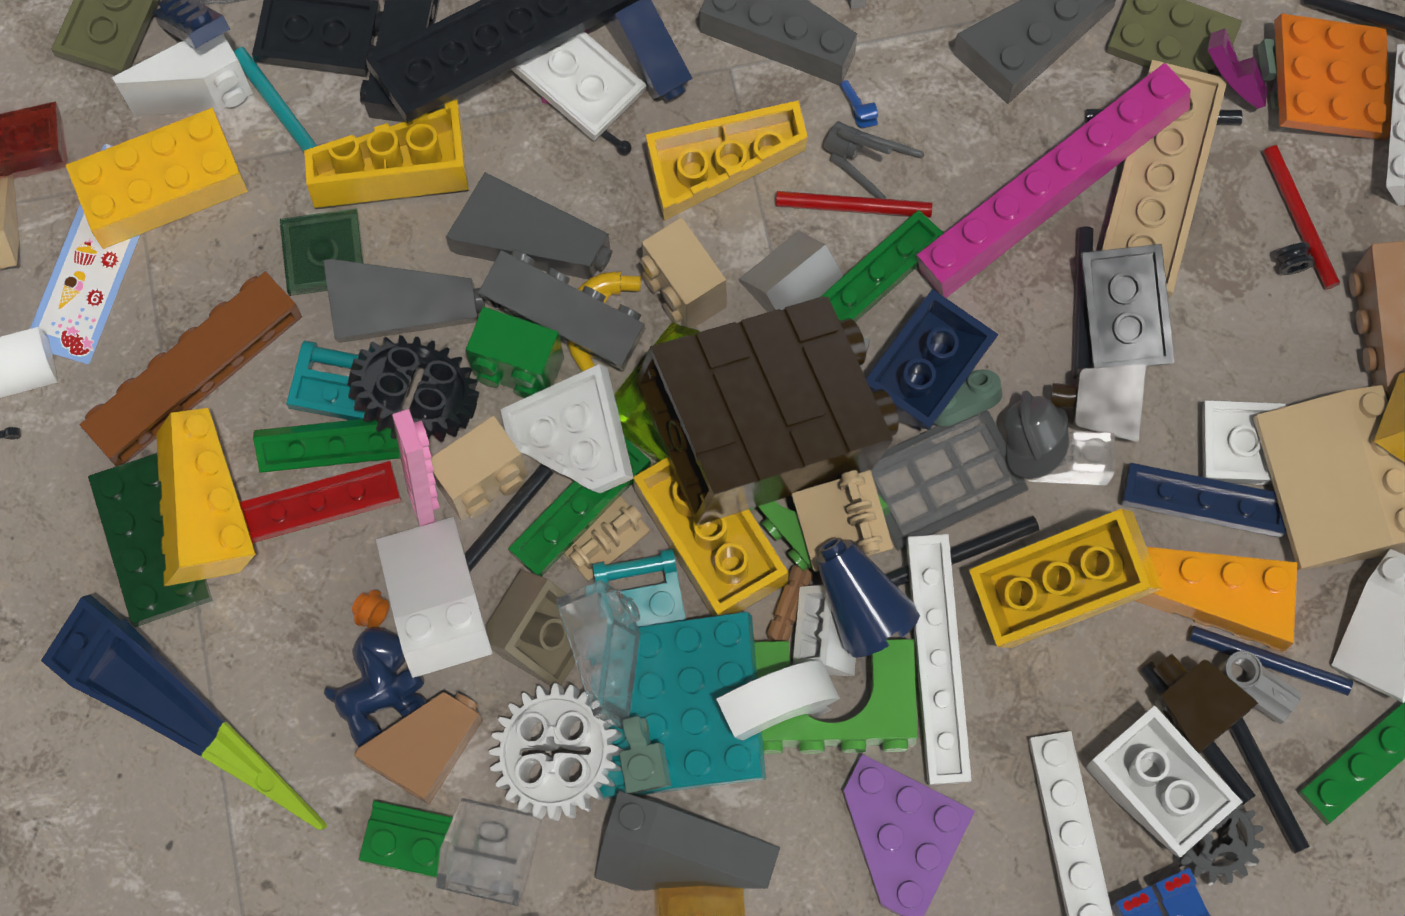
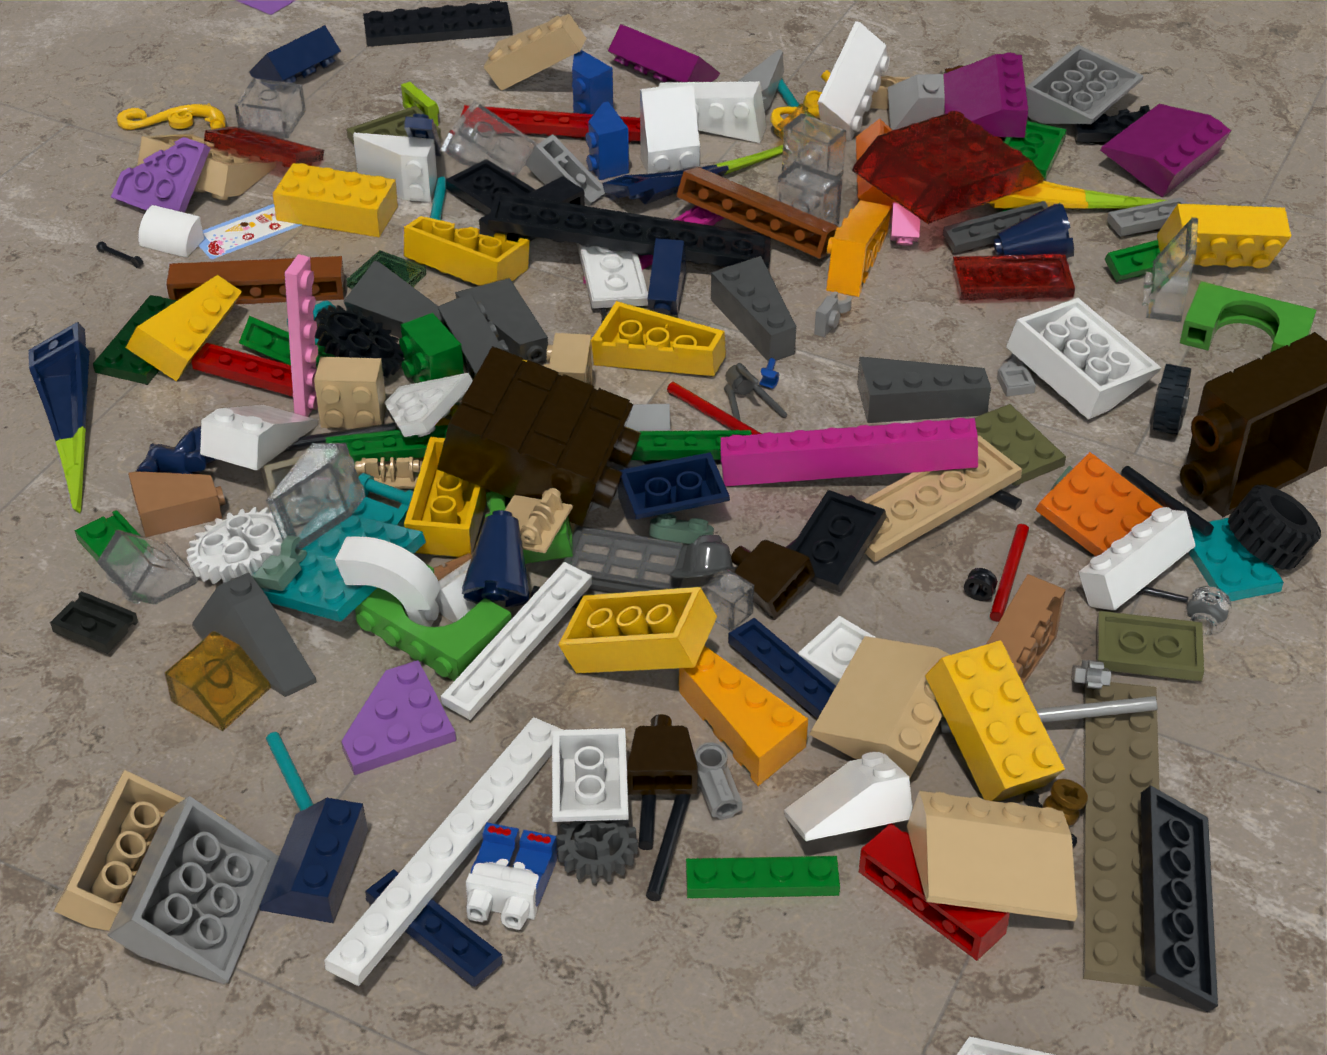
camera: 35 degrees right, 30 degrees down
(1241, 75) = (1035, 478): magenta slope -> none
(1273, 661) = (749, 788): dark blue bar -> none

